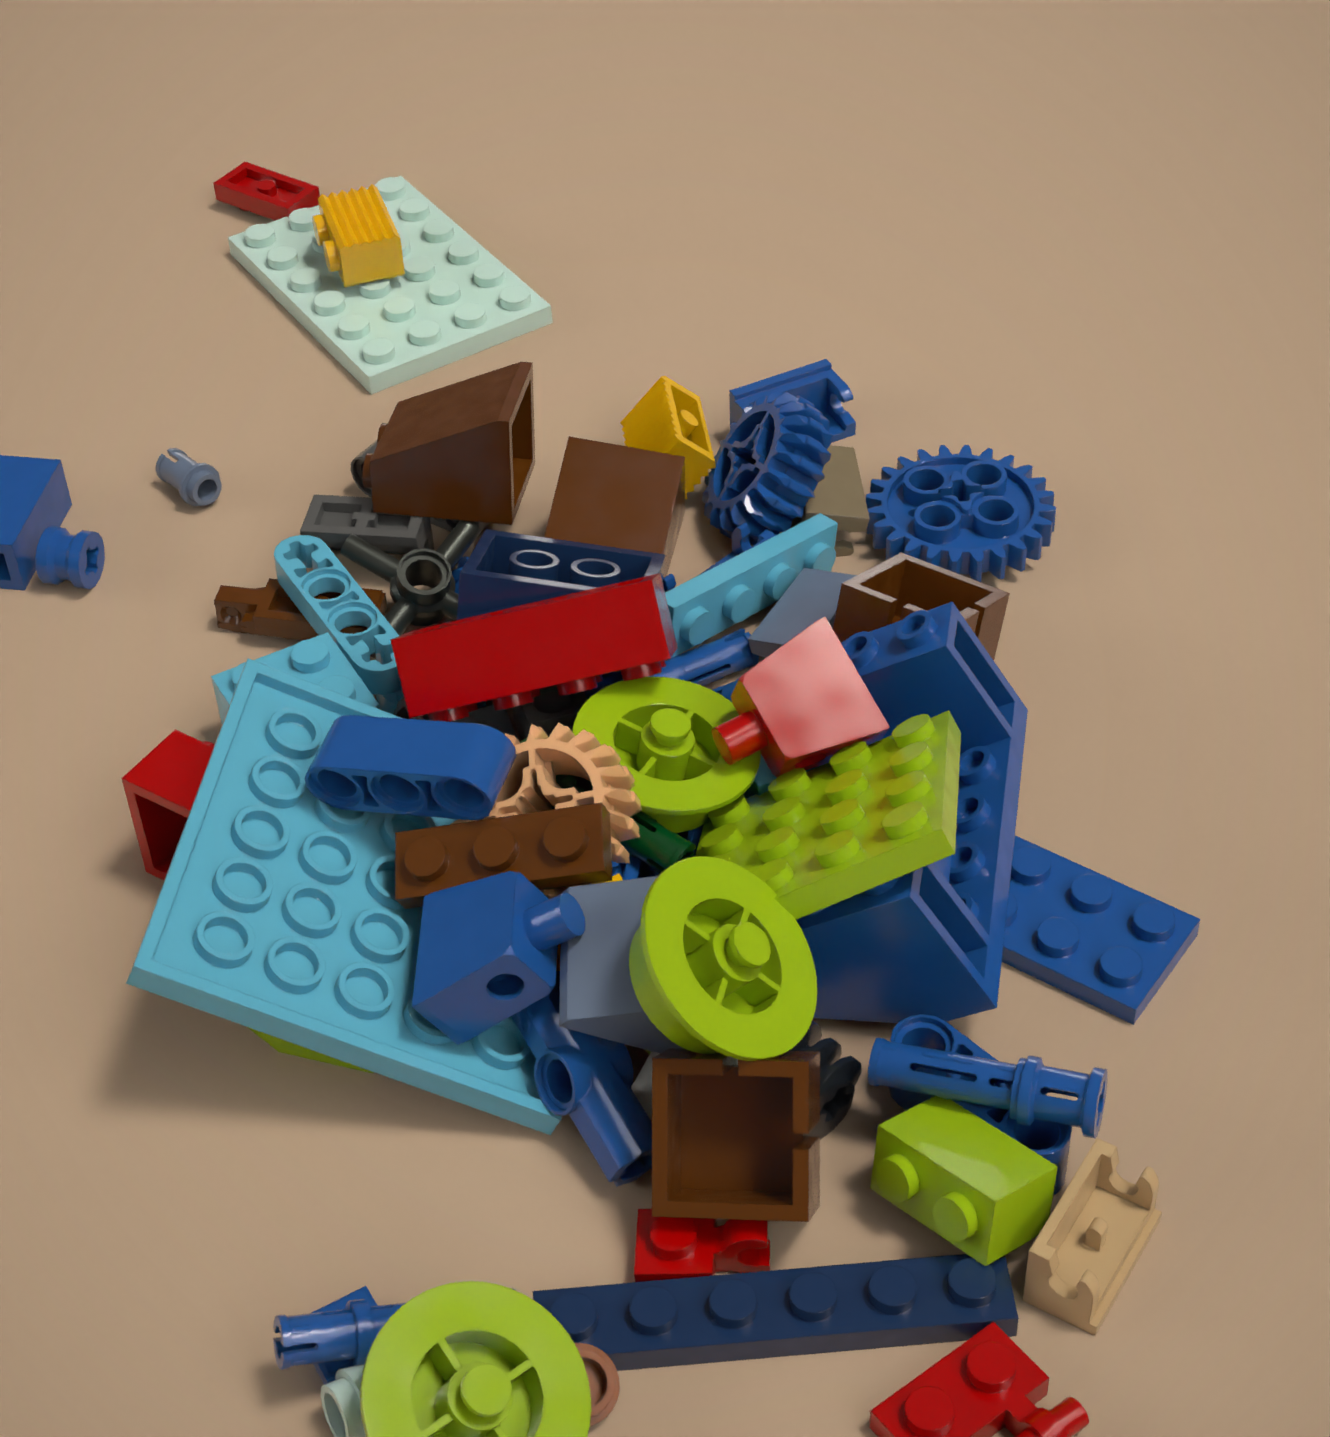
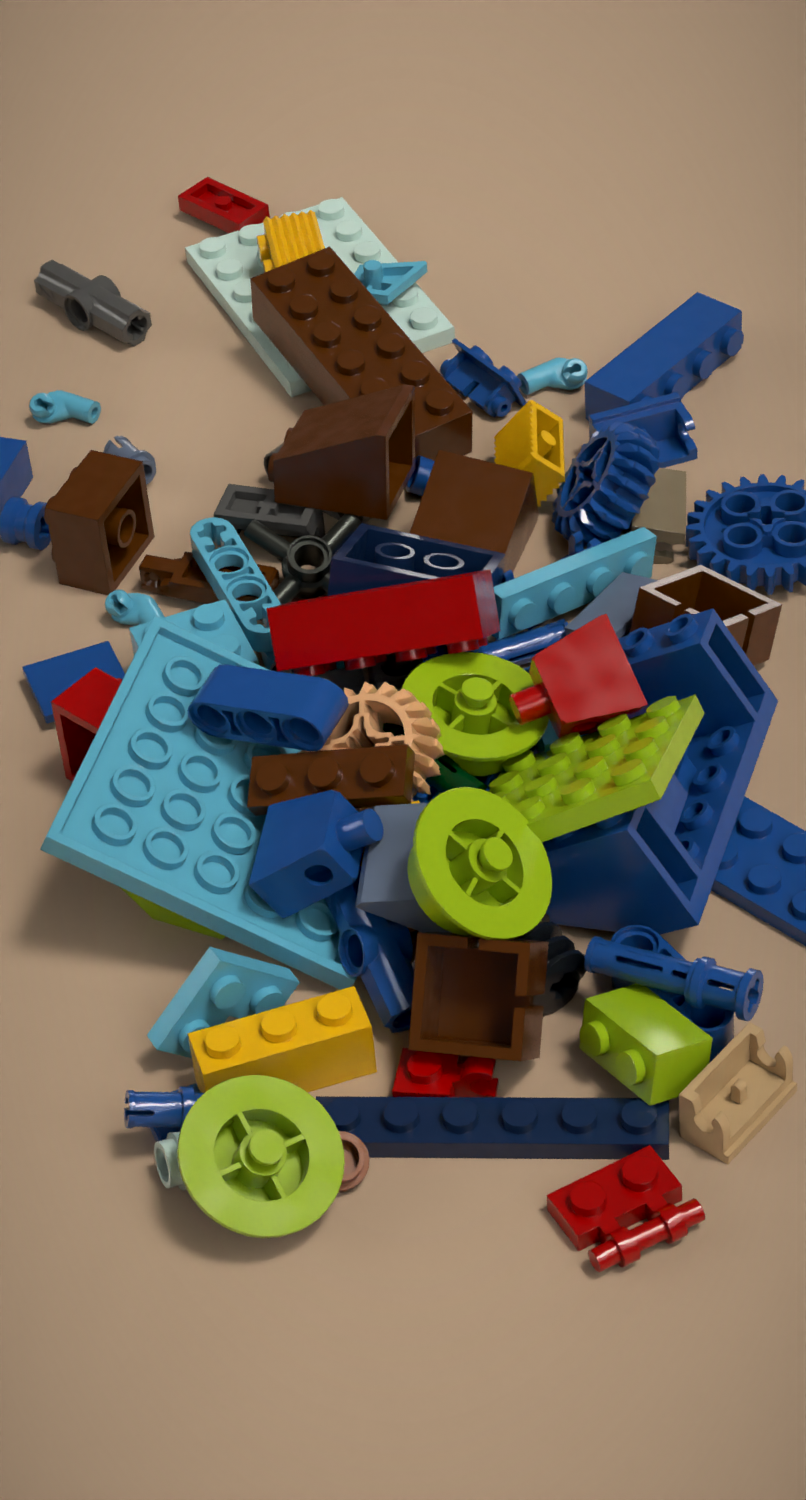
camera: 10 degrees right, 0 degrees up
(101, 419) = (63, 405): none -> medium azure arm
(126, 302) = (93, 303): none -> dark grey piece
(127, 740) = (55, 675): none -> blue piece
(160, 550) = (99, 522): none -> reddish brown brick
(210, 651) = (131, 607): none -> medium azure arm
(384, 1151) = (219, 988): none -> medium azure plate
(438, 328) = (353, 347): none -> reddish brown brick
(463, 260) = (389, 280): none -> medium azure piece
(484, 1225) = (302, 1042): none -> yellow brick
(544, 474) = (420, 475): none -> blue hinge
(610, 367) = (495, 387): none -> blue hinge
(675, 349) = (555, 373): none -> medium azure arm
(804, 322) = (669, 356): none -> blue brick

